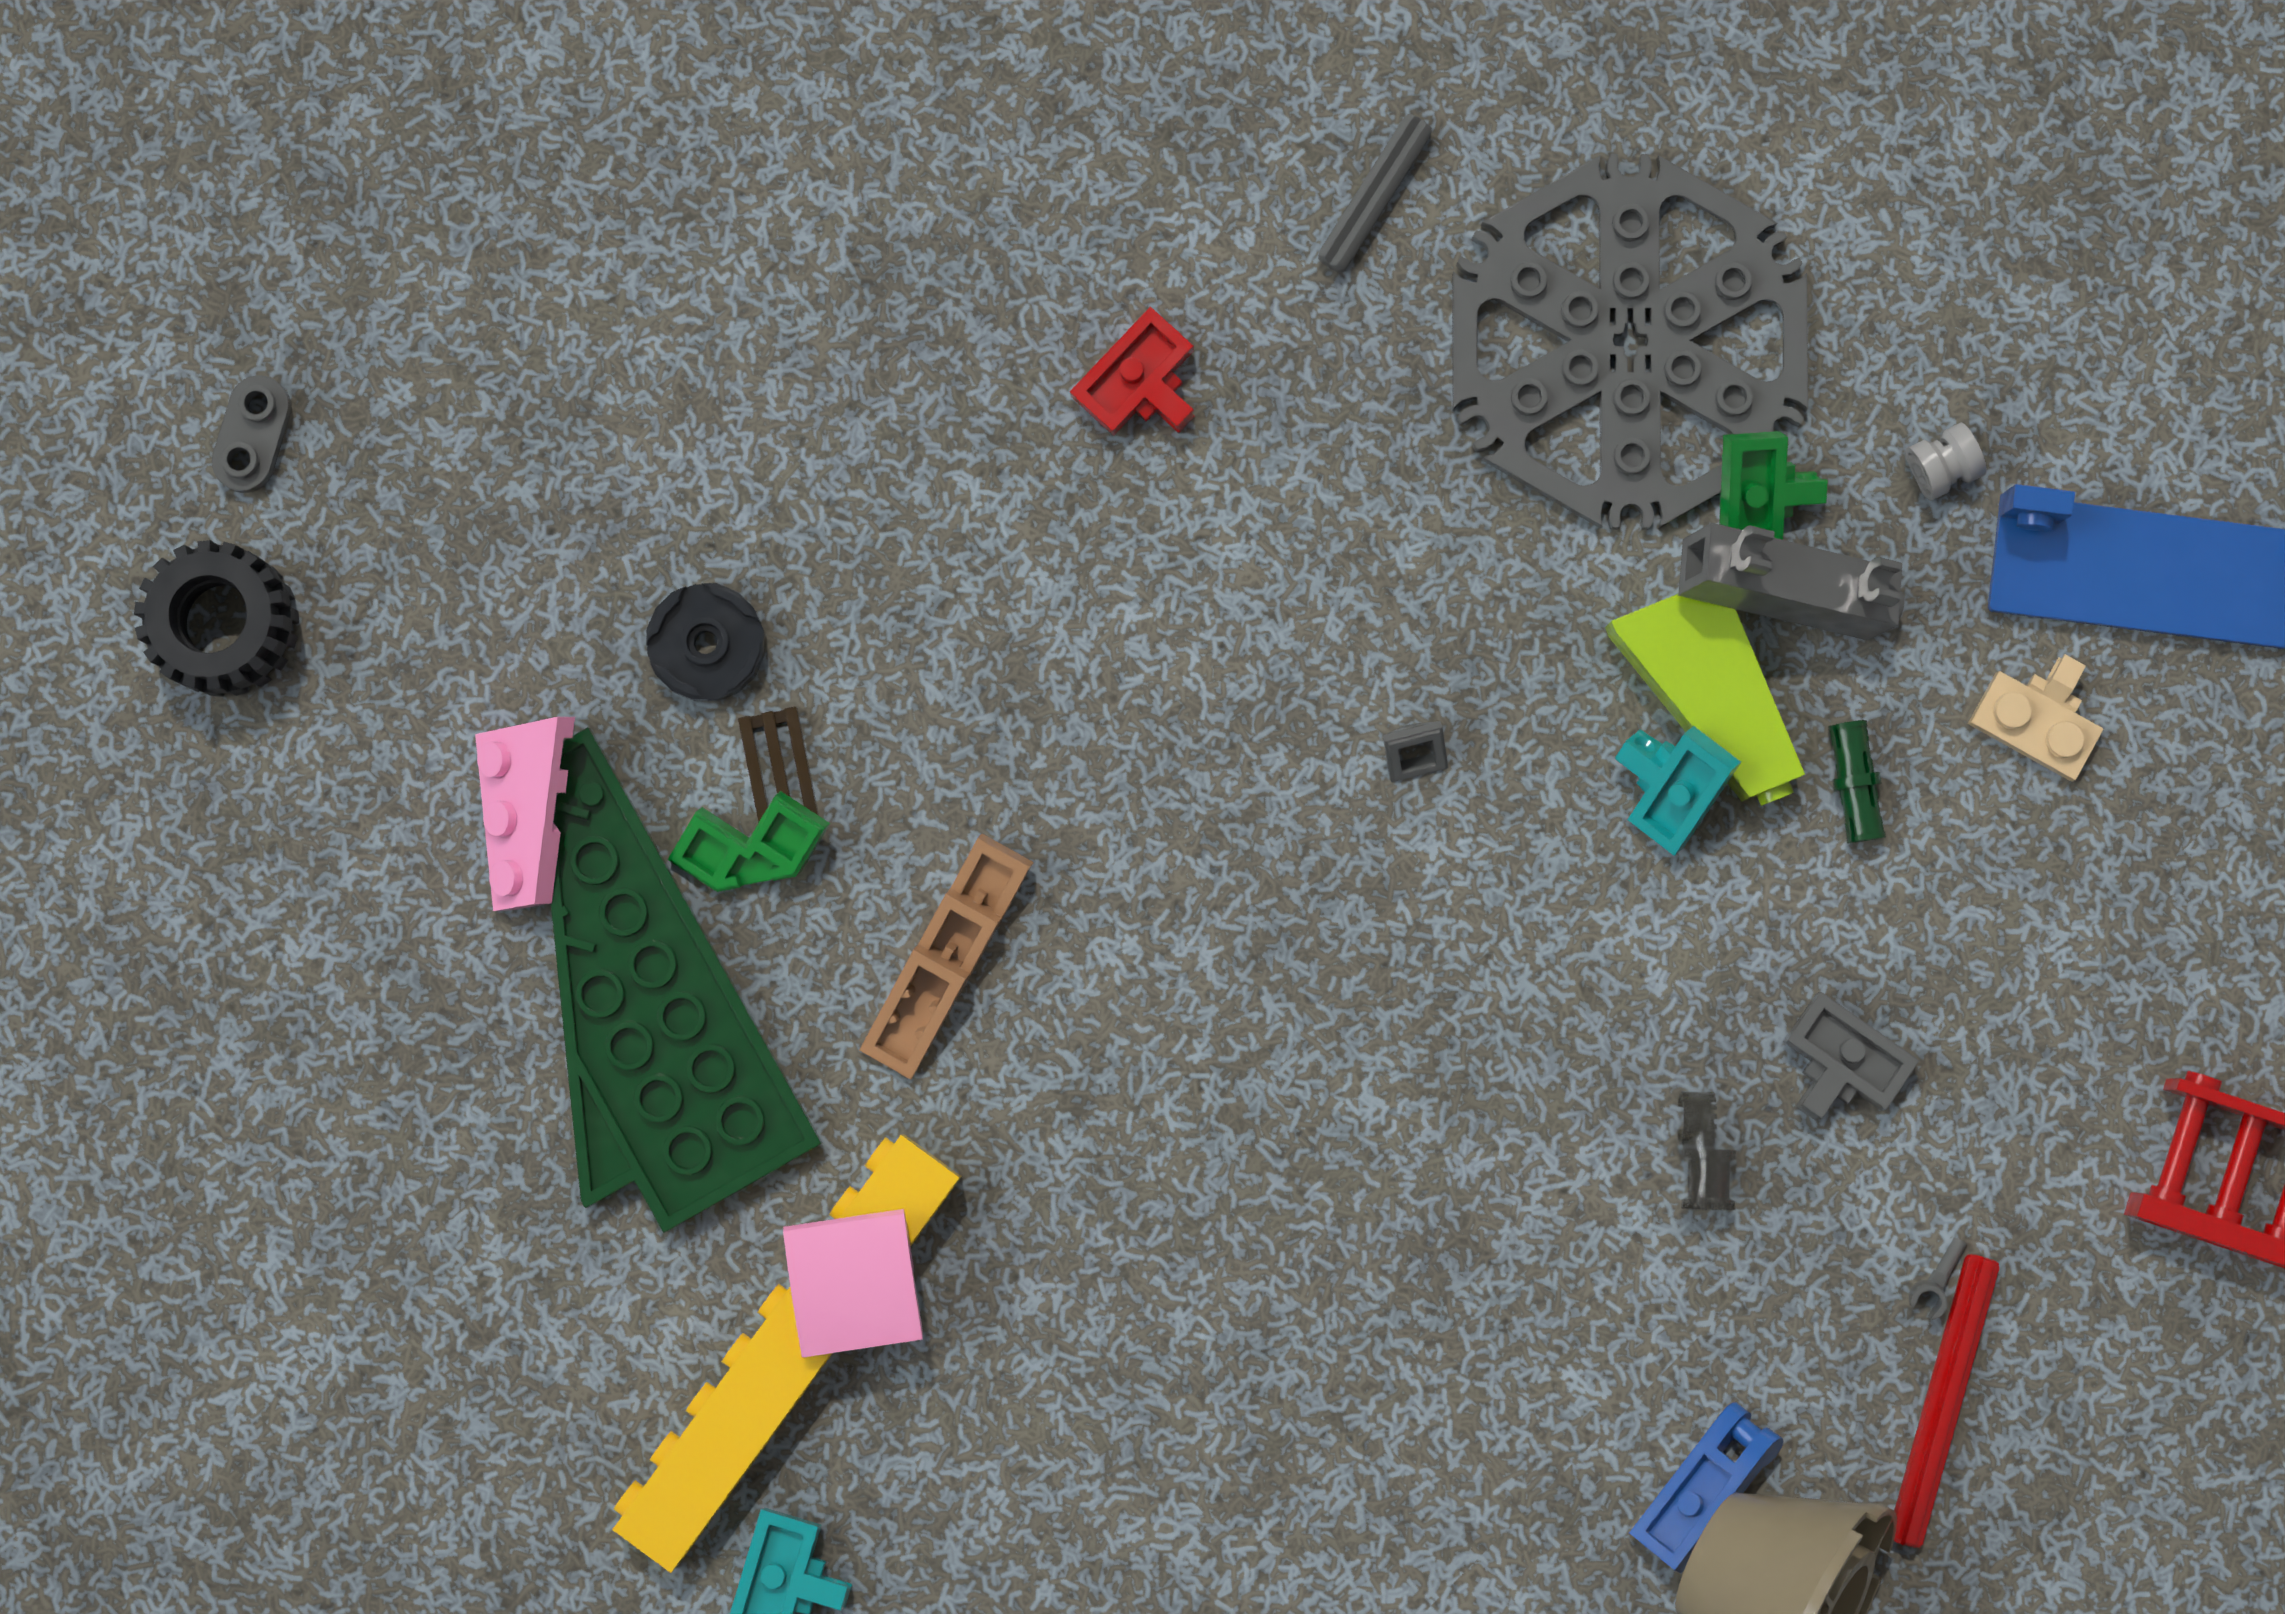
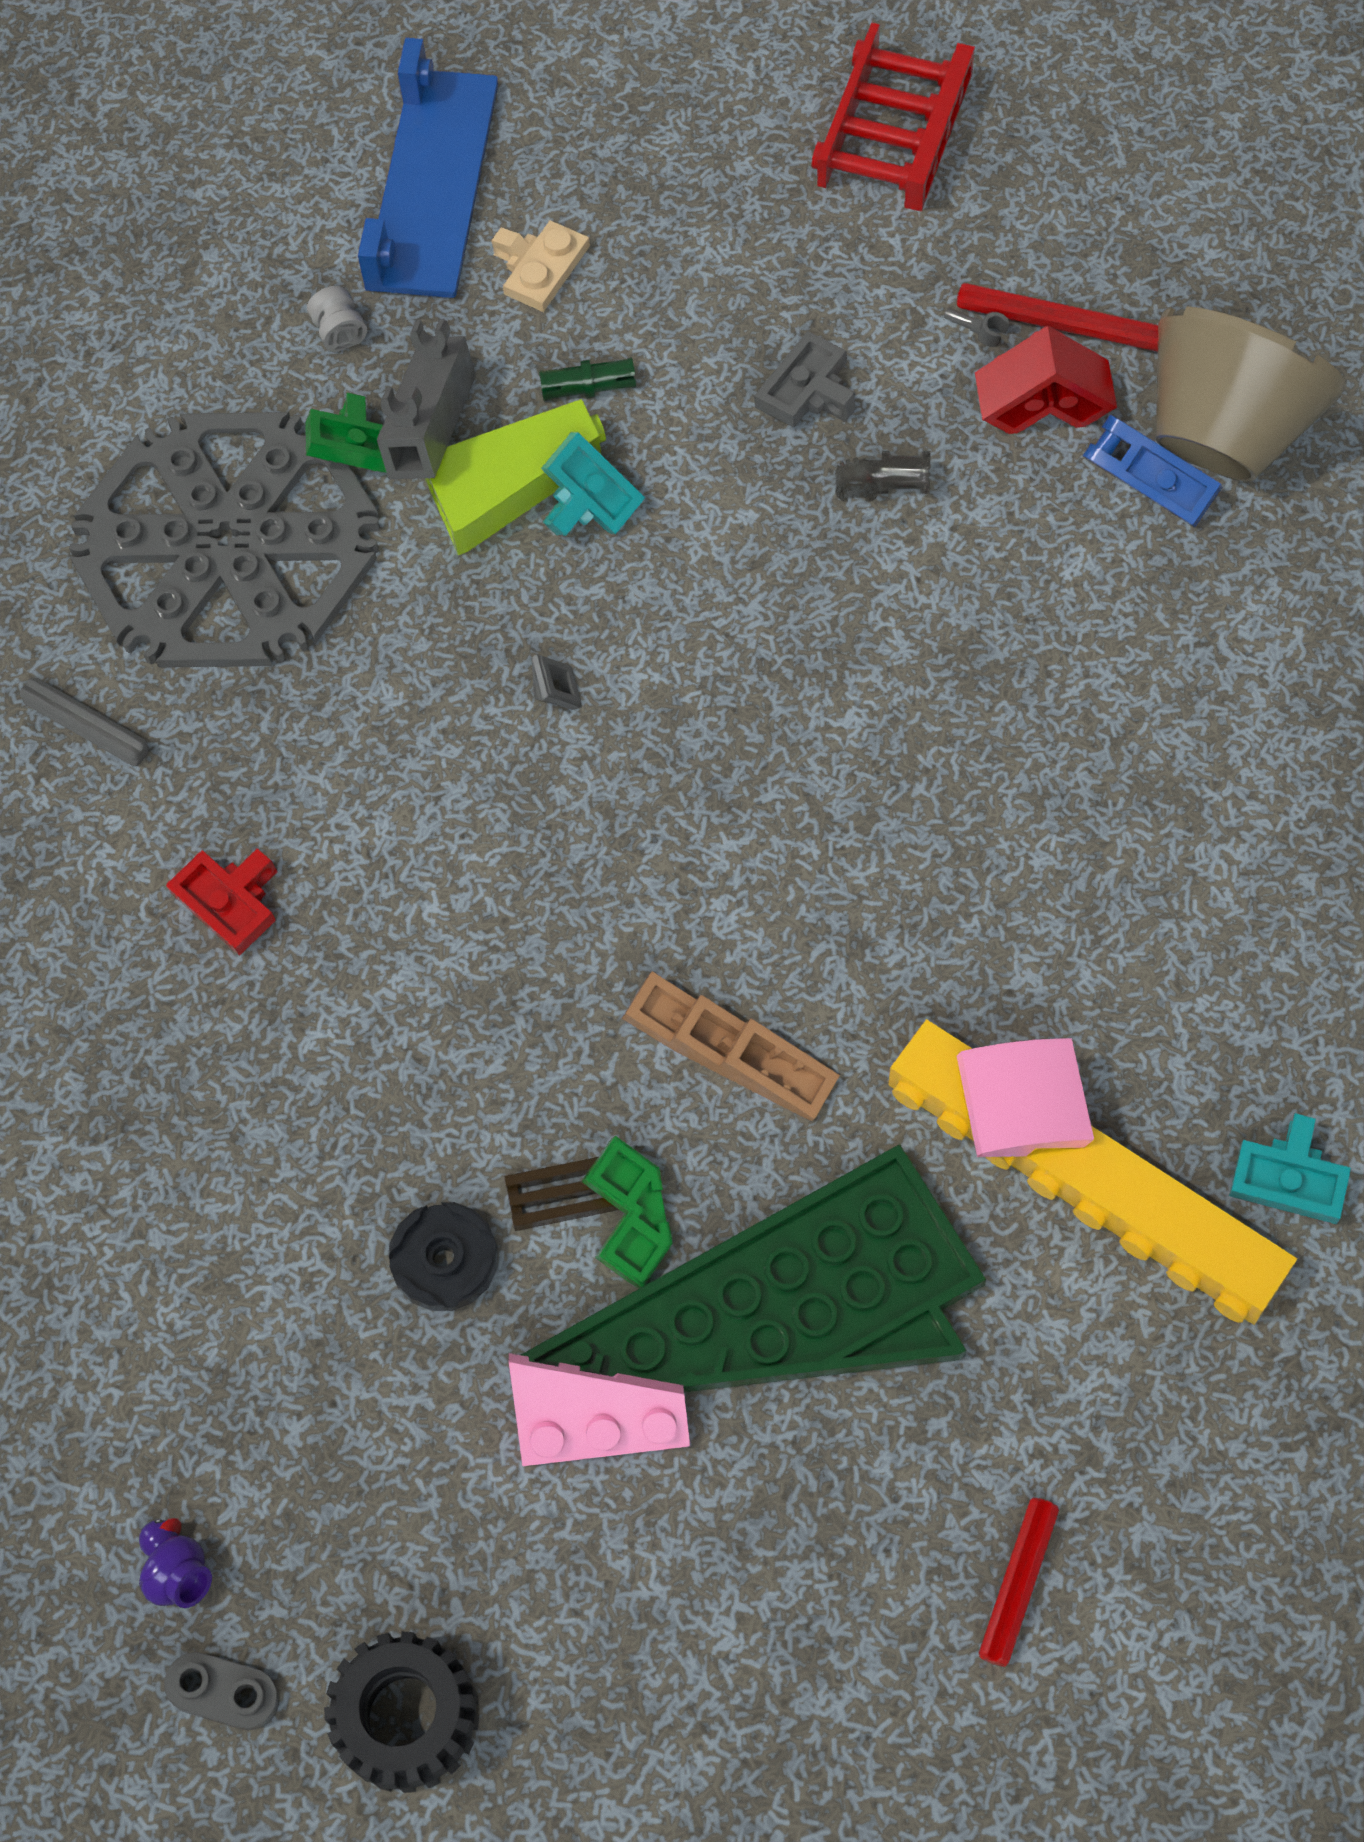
camera: 85 degrees left, 20 degrees down
(345, 1253) = (1018, 1582): none -> red axle
(368, 379) = (174, 1567): none -> dark purple animal
(1827, 1359) = (1045, 378): none -> red brick

